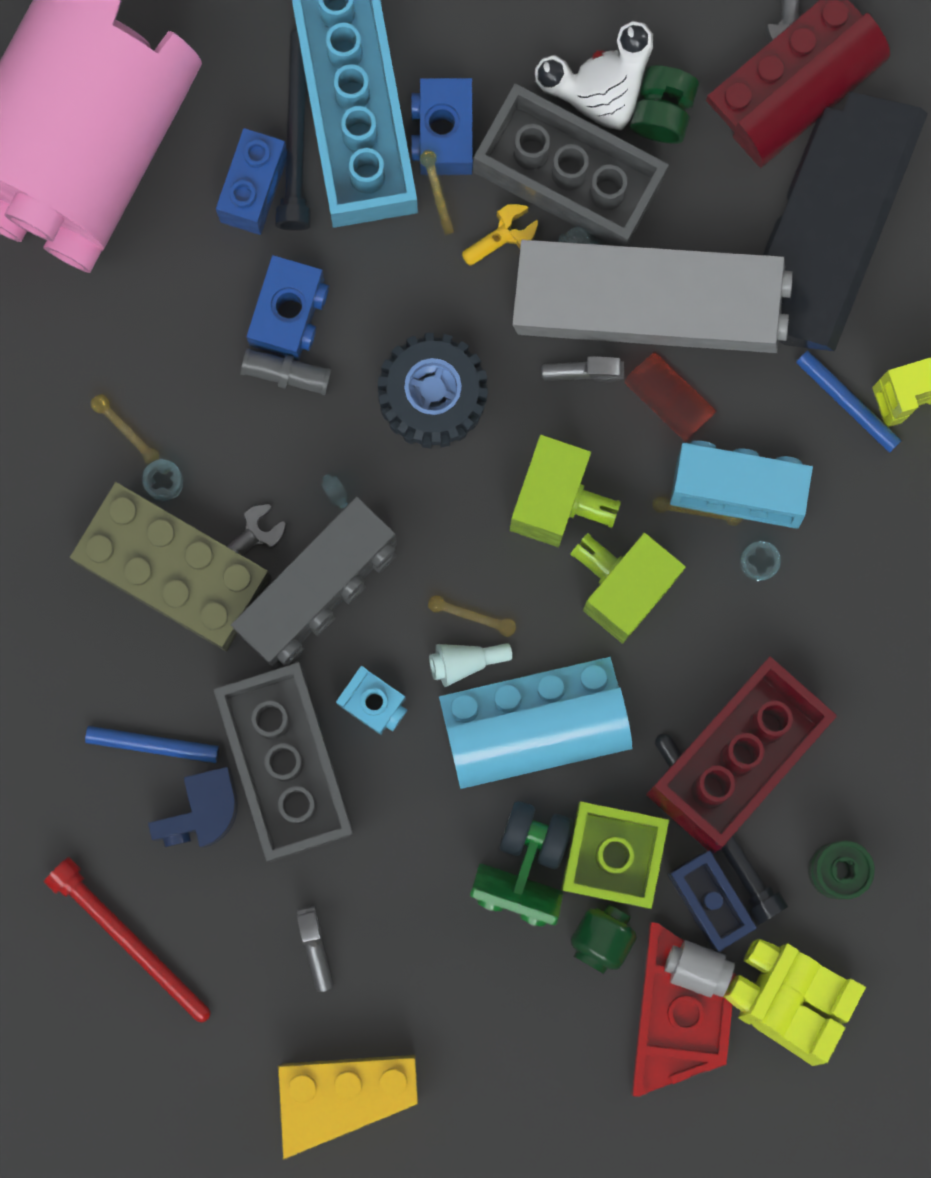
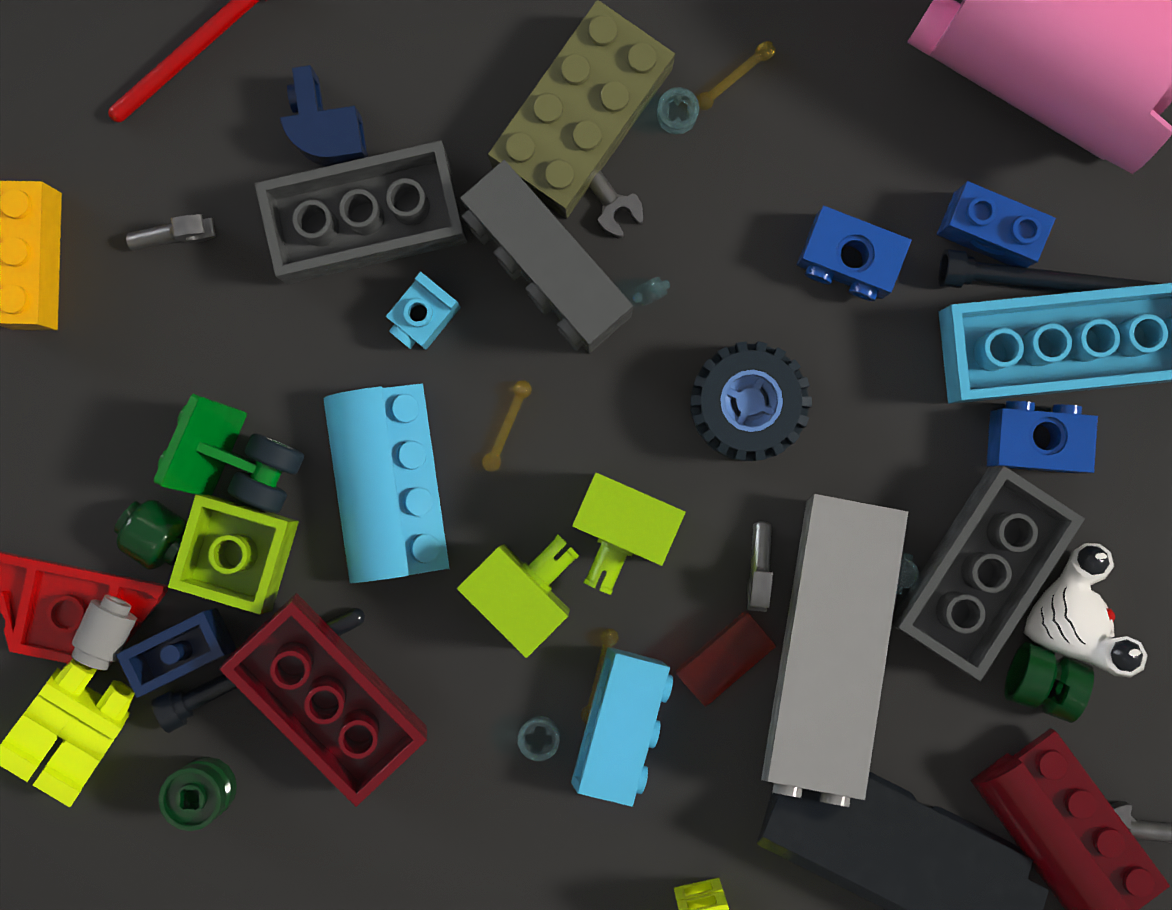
camera: 105 degrees right, 5 degrees up
(152, 744) = (399, 81): blue bar -> none
(285, 371) = (784, 248): dark grey pin -> none
(428, 159) = (1005, 417): clear yellow hinge -> none
(458, 661) = (457, 407): light aqua cone -> none
(501, 234) = (916, 492): yellow bar -> none
(848, 401) = (704, 851): blue bar -> none

